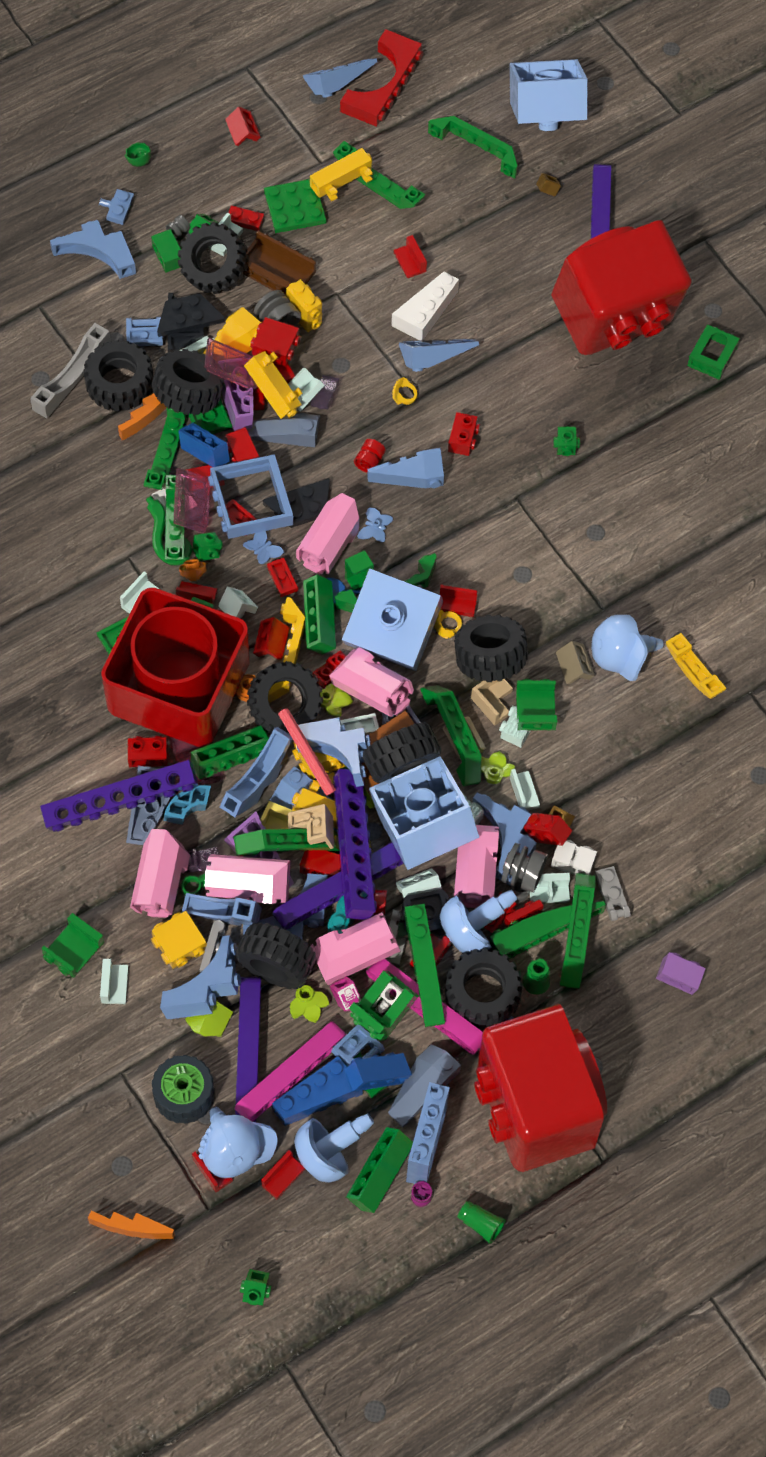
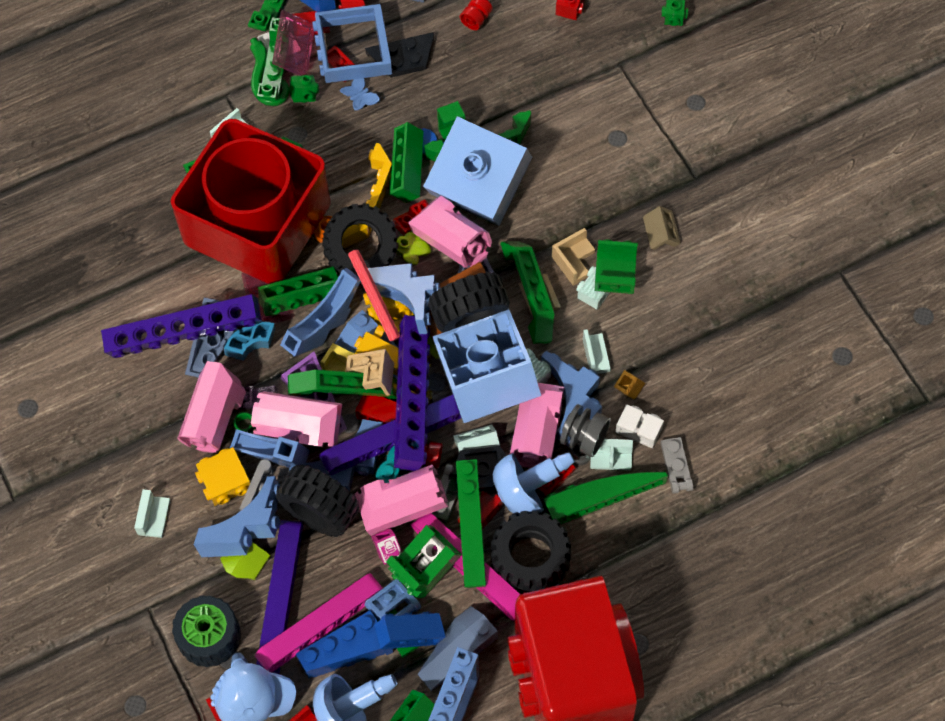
camera: 10 degrees right, 0 degrees up
(73, 946) = (116, 475): green panel -> none
(147, 751) = (217, 284): red brick -> none
(190, 590) = (293, 133): red panel -> none
(192, 569) = (286, 110): orange plate -> none
(236, 602) = (326, 145): light aqua panel -> none
(271, 638) = (357, 183): red panel -> none
(282, 577) = (375, 124): red plate -> none
(309, 1006) = (348, 556): lime plate -> none
(329, 534) = (426, 85): bright pink brick -> none
(368, 722) = (441, 272): light aqua panel -> none
(375, 525) = (475, 80): medium blue piece -> none
(419, 471) = (520, 30): medium blue wedge -> none
(444, 632) = (532, 189): yellow piece -> none
(458, 600) = (548, 159): red panel -> none
(495, 767) = (568, 327): lime plate -> none
(506, 643) = (575, 207): black tyre -> none
(529, 909) = (586, 475): red plate -> none
(537, 978) = (588, 545): green plant -> none
(547, 829) = (614, 393): red brick -> none
(578, 931) = (635, 501): green slope -> none
(620, 646) = (708, 215): light blue piece -> none
(680, 973) = (740, 553): medium lavender brick -> none
(693, 667) = (782, 242): yellow slope -> none

